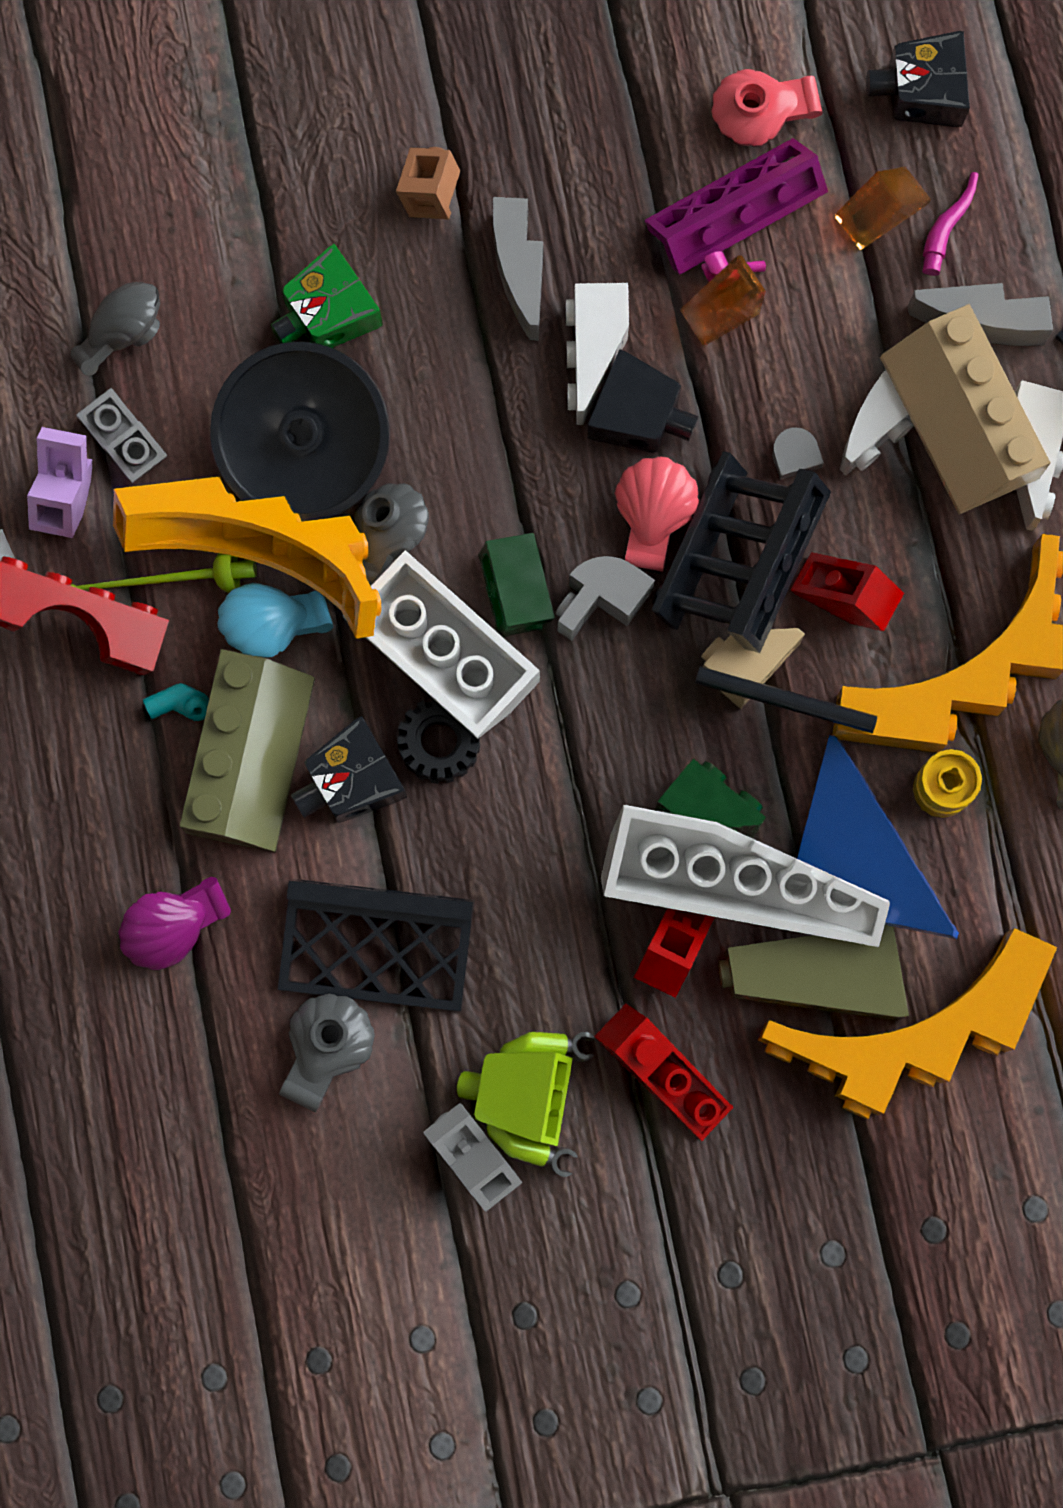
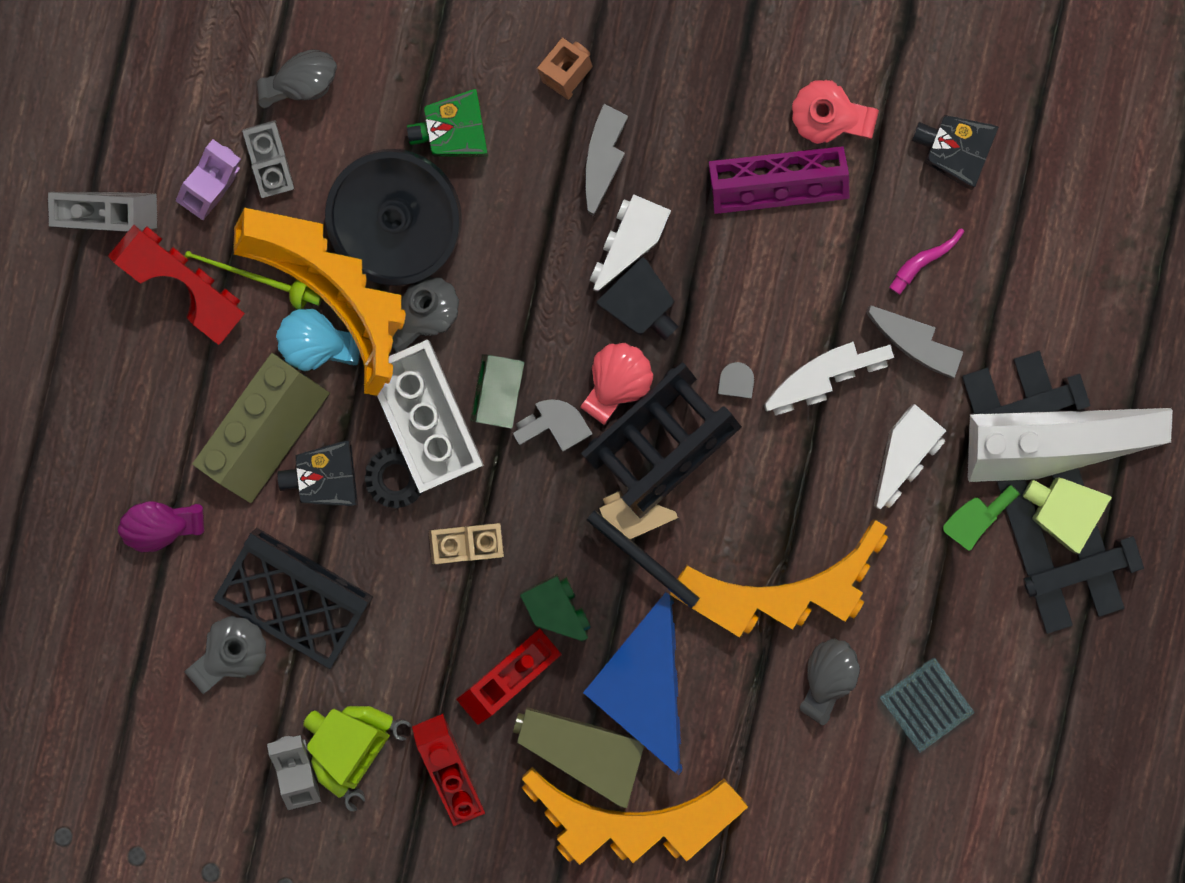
camera: 25 degrees right, 10 degrees up
(179, 698) = (230, 368): teal arm -> none
(560, 784) = (466, 543): none -> tan slope
(716, 262) = (744, 222): dark pink hand -> none
(725, 302) = (733, 251): clear orange slope -> none
(730, 876) = (546, 668): white wedge -> none
(849, 590) = (725, 497): red slope -> none
(881, 205) = (884, 226): clear orange slope -> none
(947, 783) = (728, 663): yellow wheel -> none
(965, 410) = (860, 411): tan slope -> none

